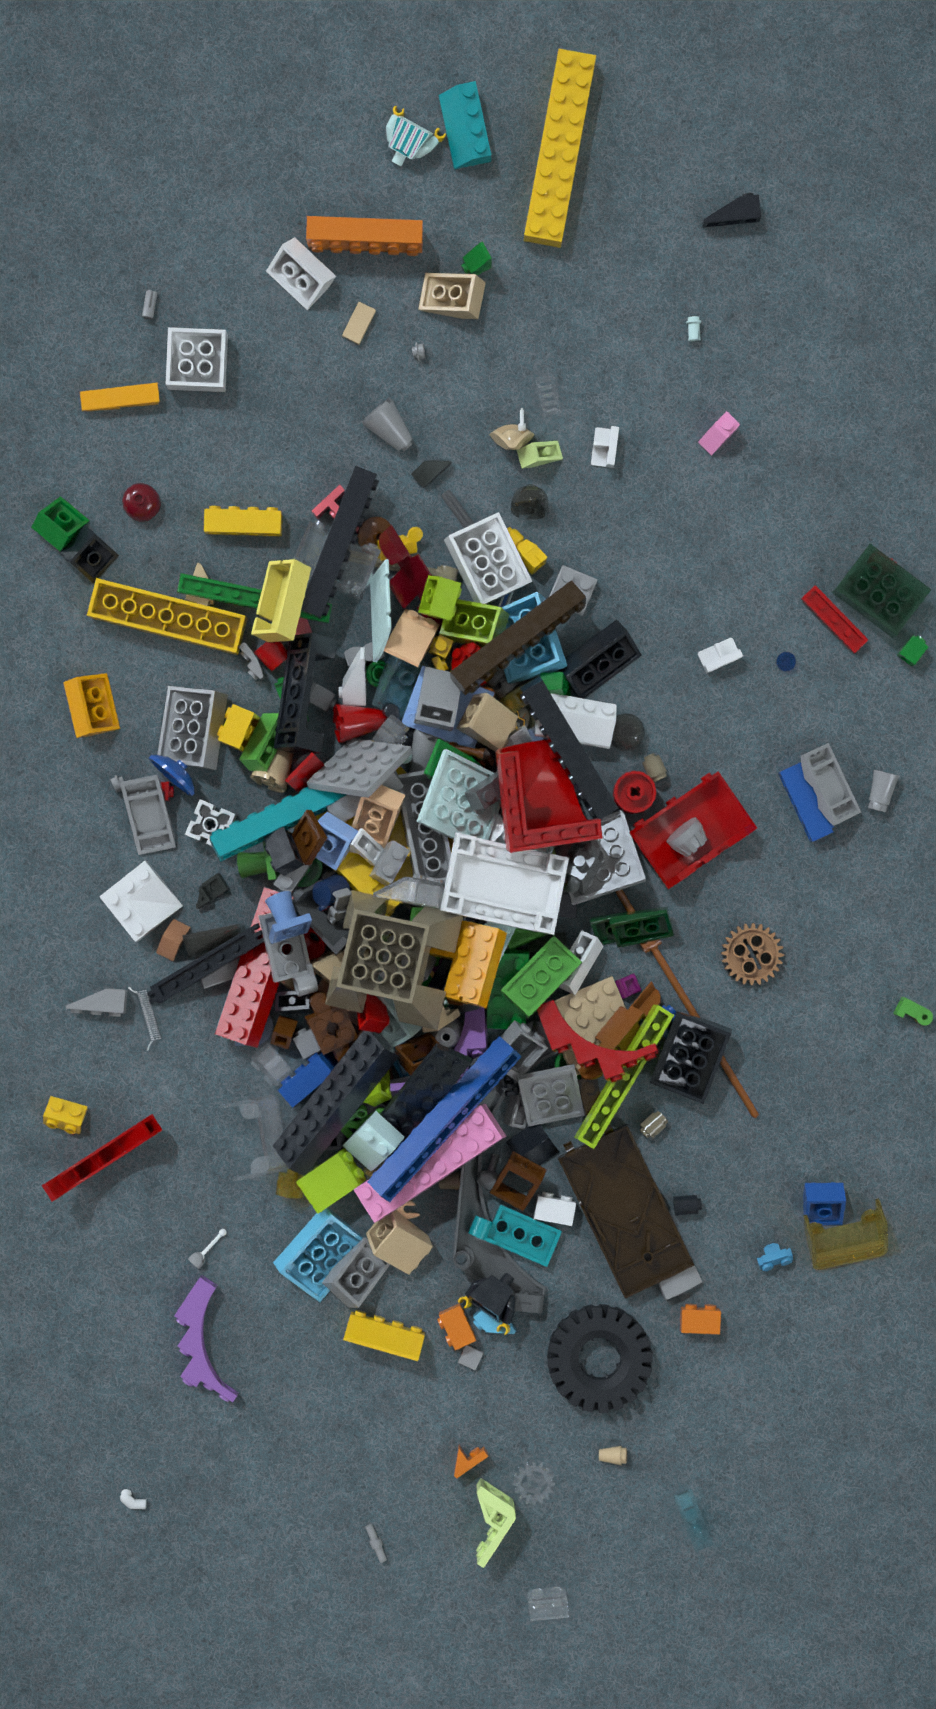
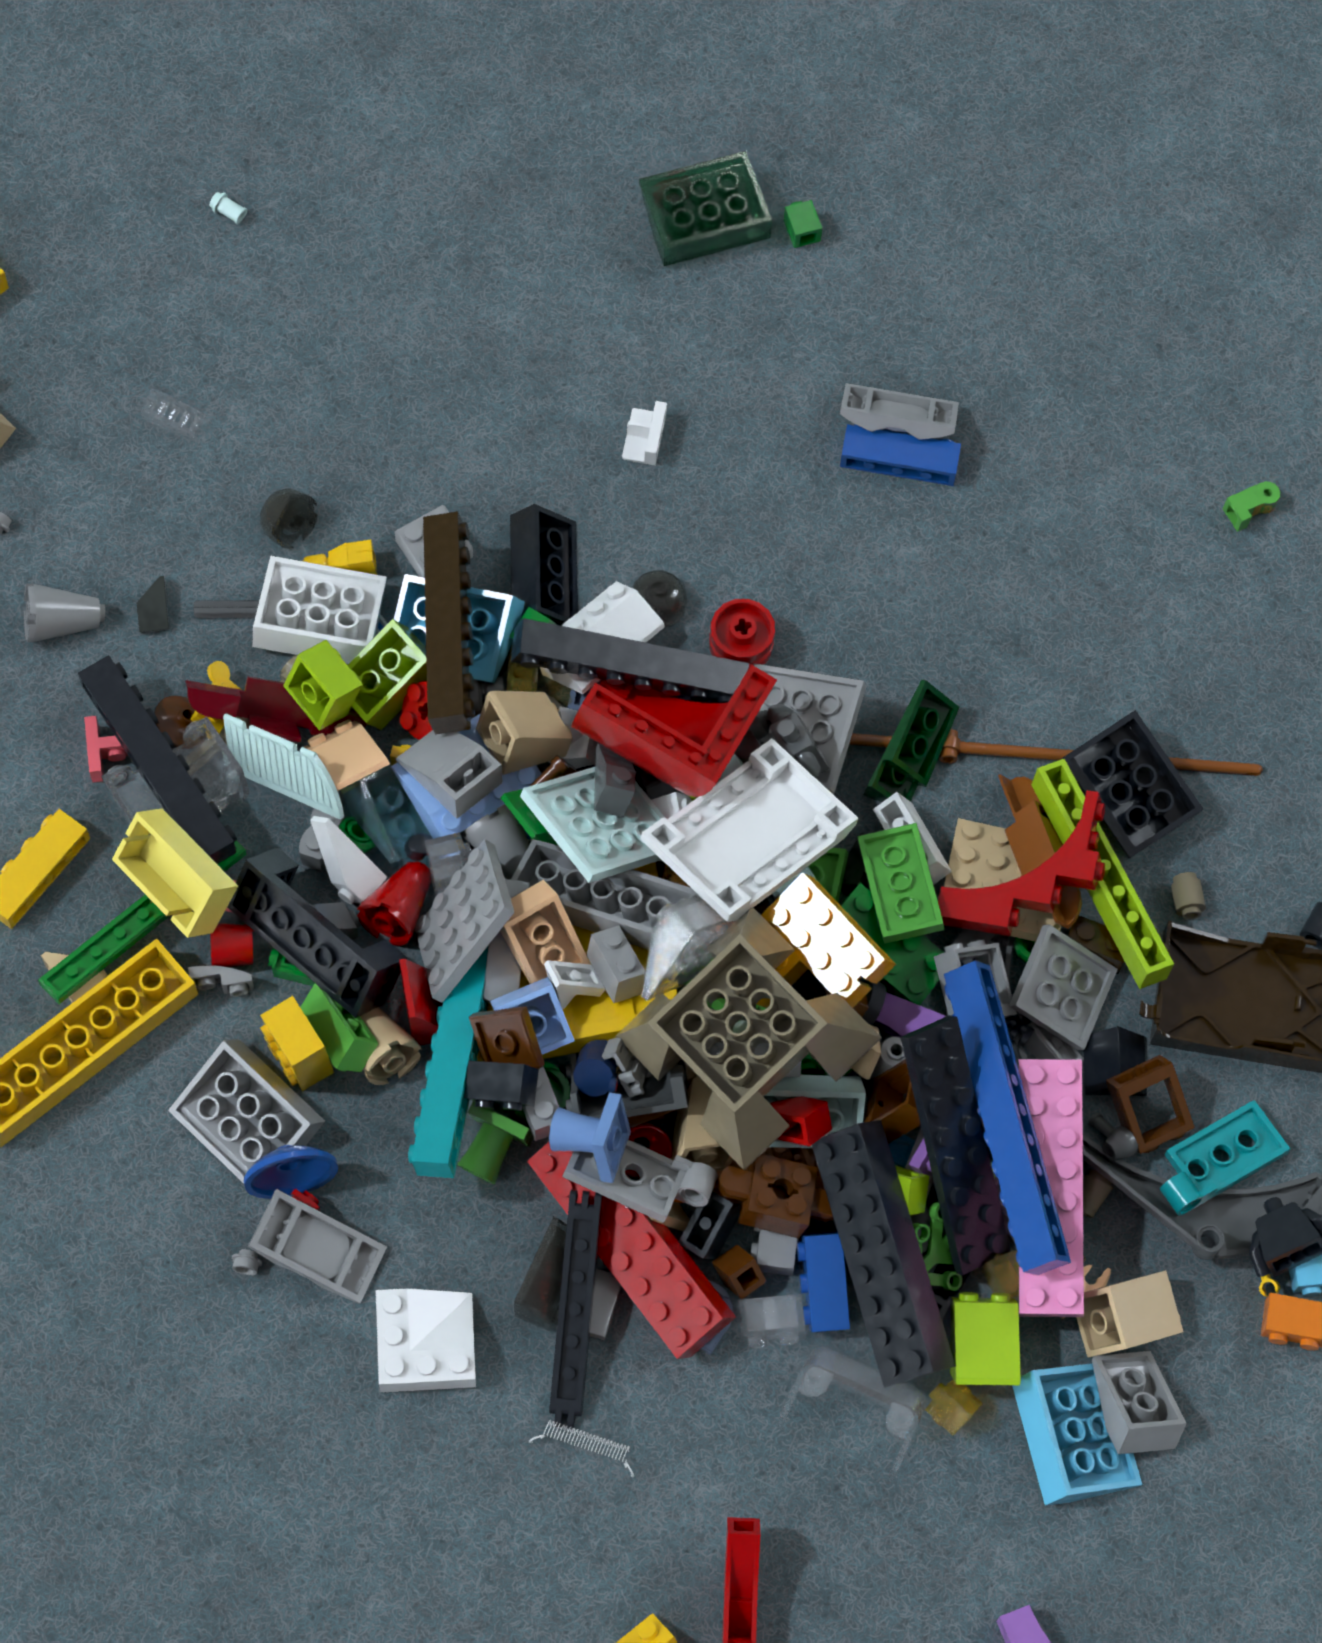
camera: 60 degrees left, 20 degrees down
(91, 705) = (115, 1223): light orange slope -> none
(107, 1000) = (526, 1480): light grey slope -> none
(172, 939) = (509, 1337): nougat slope -> none
(198, 1258) = (970, 1608): hinge -> none
(206, 813) = (387, 1193): white brick -> none
(211, 889) = (478, 1240): pearl dark grey slope -> none
(373, 1141) = (972, 1242): light aqua slope -> none
(384, 1336) = (1246, 1422): yellow slope -> none
(441, 647) = (385, 734): yellow brick -> none
(512, 436) = (189, 483): tan hat -> none
(539, 454) = (235, 470): yellowish green slope -> none
(555, 1209) = (1218, 1088): white brick -> none
(605, 447) = (289, 392): white panel -> none
(628, 986) = (984, 809): magenta slope -> none
(654, 767) = (725, 591): dark tan brick -> none
(688, 837) = (846, 607): light grey piece -> none
(719, 433) = (375, 258): bright pink slope -> none
(721, 818) = (839, 596): red panel -> none
(737, 962) = (1049, 613): medium nougat gear -> none
(739, 211) = (133, 69): black slope -> none
(786, 661) = (709, 368): clear blue tile -> none
(834, 619) = (699, 282): red plate -> none
(882, 790) = (948, 361): light grey plant -> none

